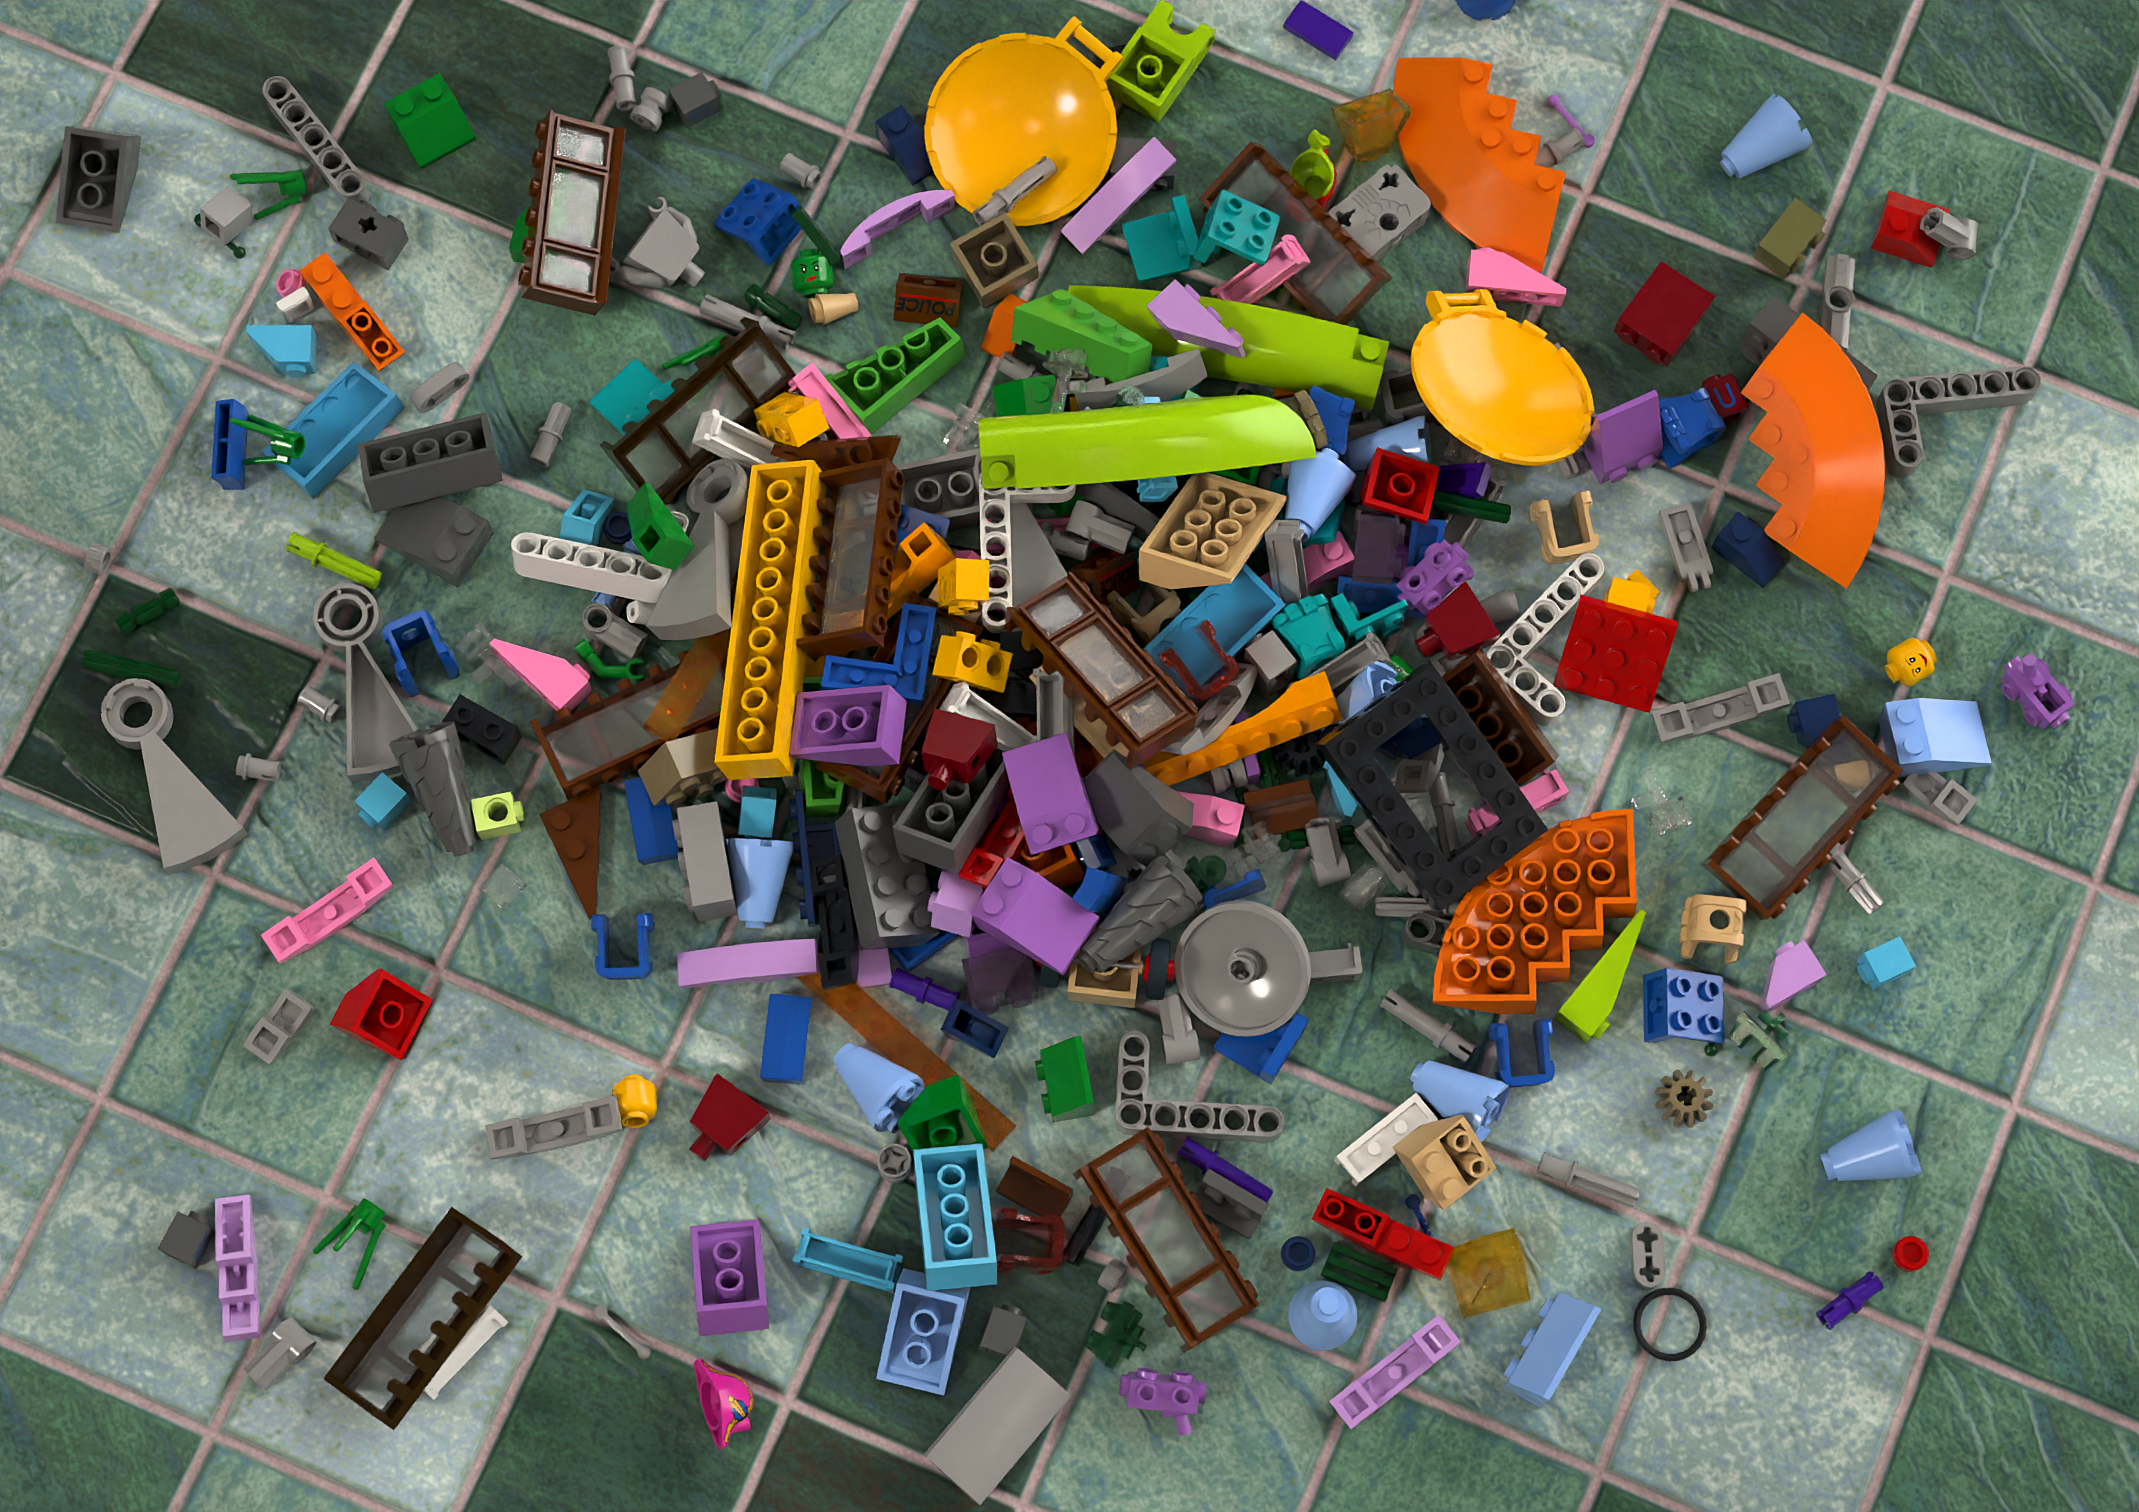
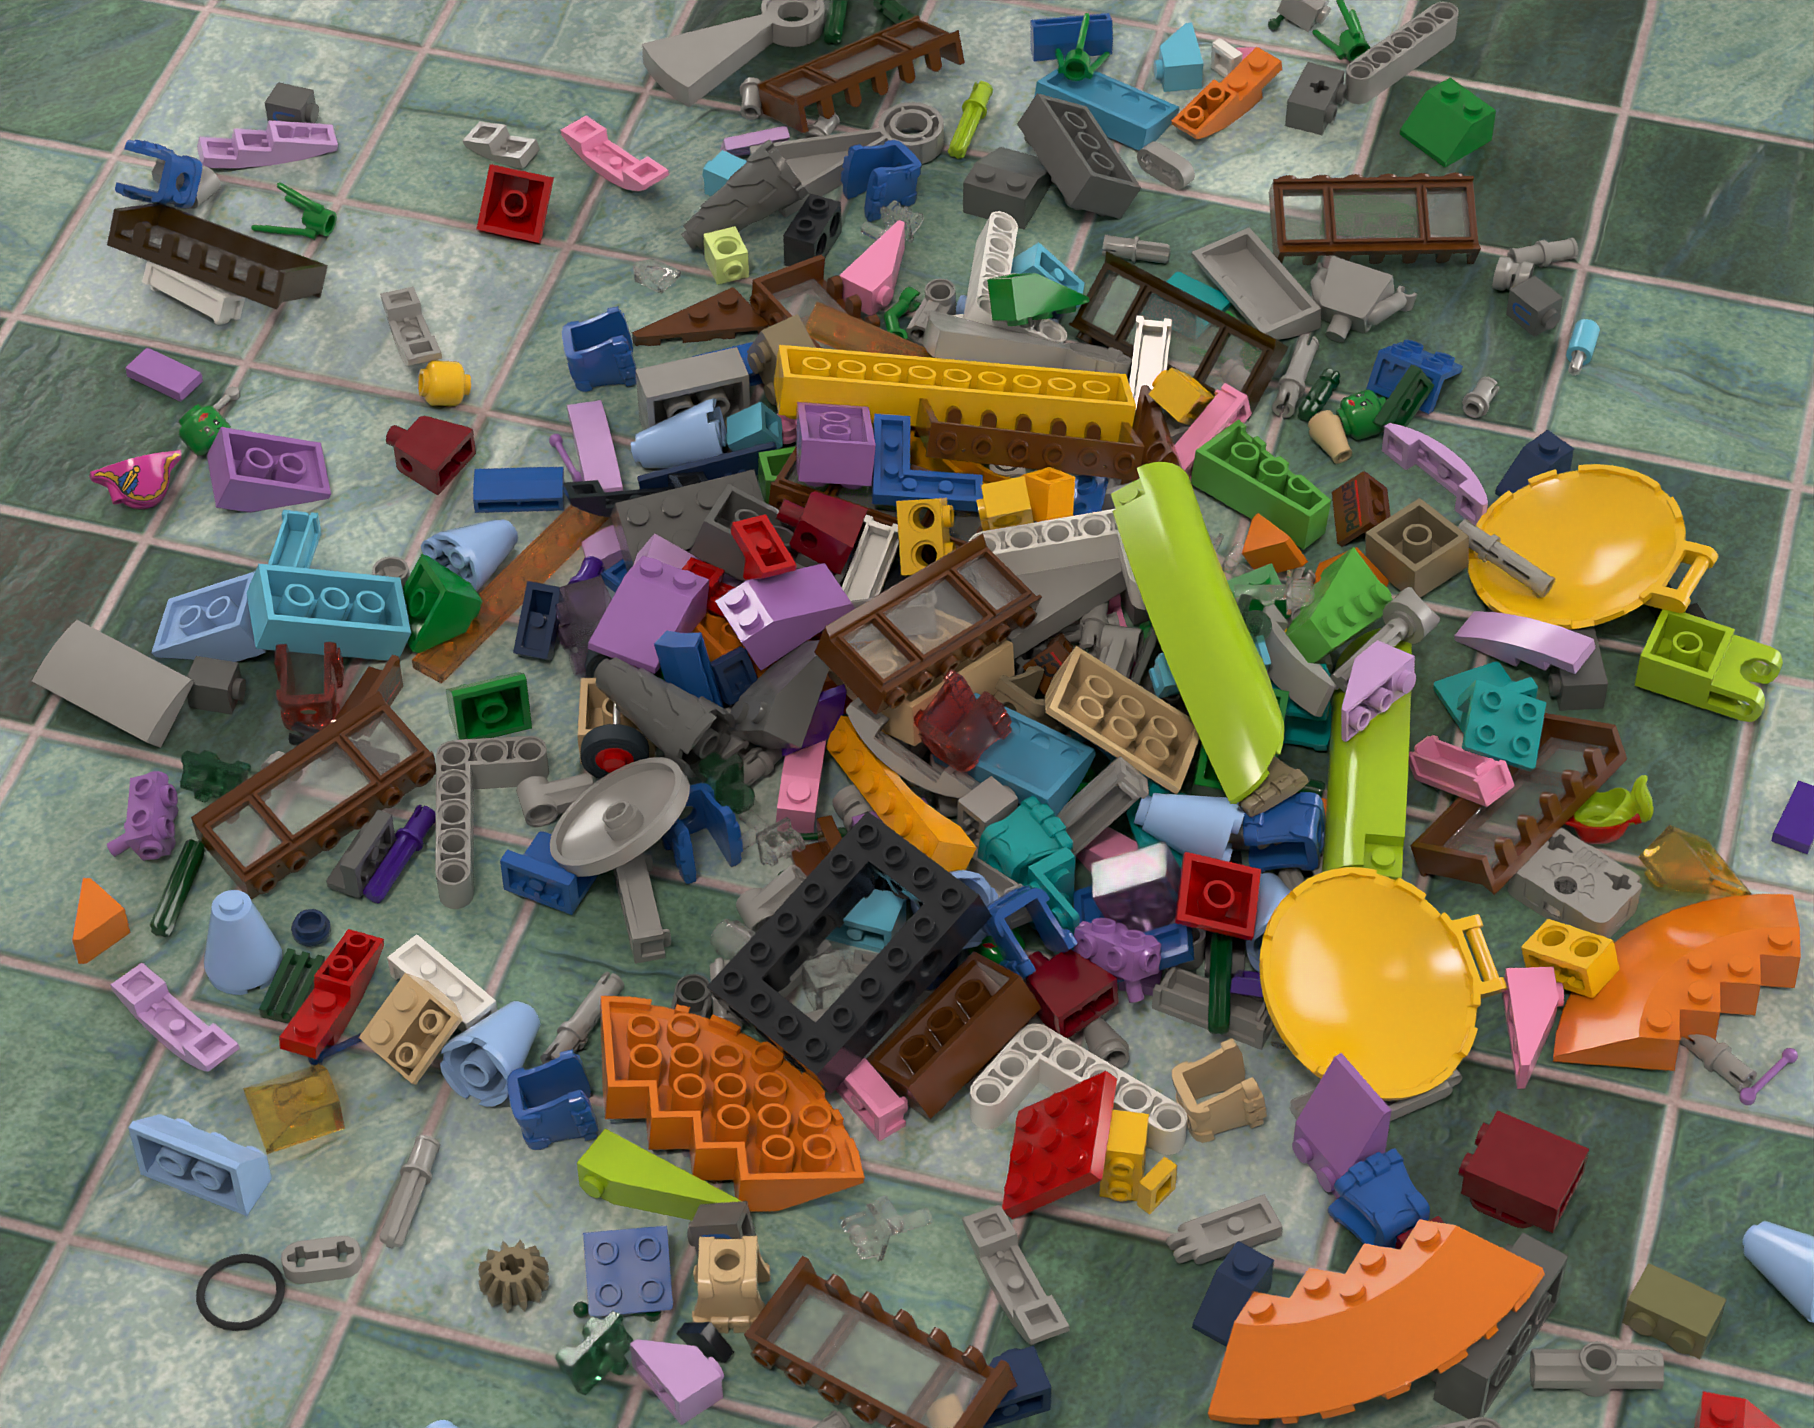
camera: 85 degrees right, 25 degrees down
(256, 656) = (843, 69): none -> reddish brown window
(280, 1372) = (173, 167): none -> blue piece
(333, 772) = (740, 144): none -> lavender tile
(565, 1380) = (164, 374): none -> medium lavender tile
(625, 333) = (1259, 285): none -> light grey slope
(666, 1337) = (200, 428): none -> green head
(719, 1001) = (556, 441): none -> medium lavender hinge
(749, 72) = (1582, 344): none -> medium azure piece
(970, 382) = (1270, 545): none -> orange slope
(998, 800) = (762, 548): none -> red slope
(1094, 282) = (1405, 619): none -> light grey piece
(1237, 1371) = (177, 888): none -> dark green axle
(1275, 1442) = (98, 922): none -> orange slope
(1417, 653) = (1049, 929): none -> blue piece
(1463, 239) = (1579, 958): none -> yellow brick
(1663, 929) = (720, 1221): none -> dark grey brick
(1753, 954) = (707, 1339): none -> black tile

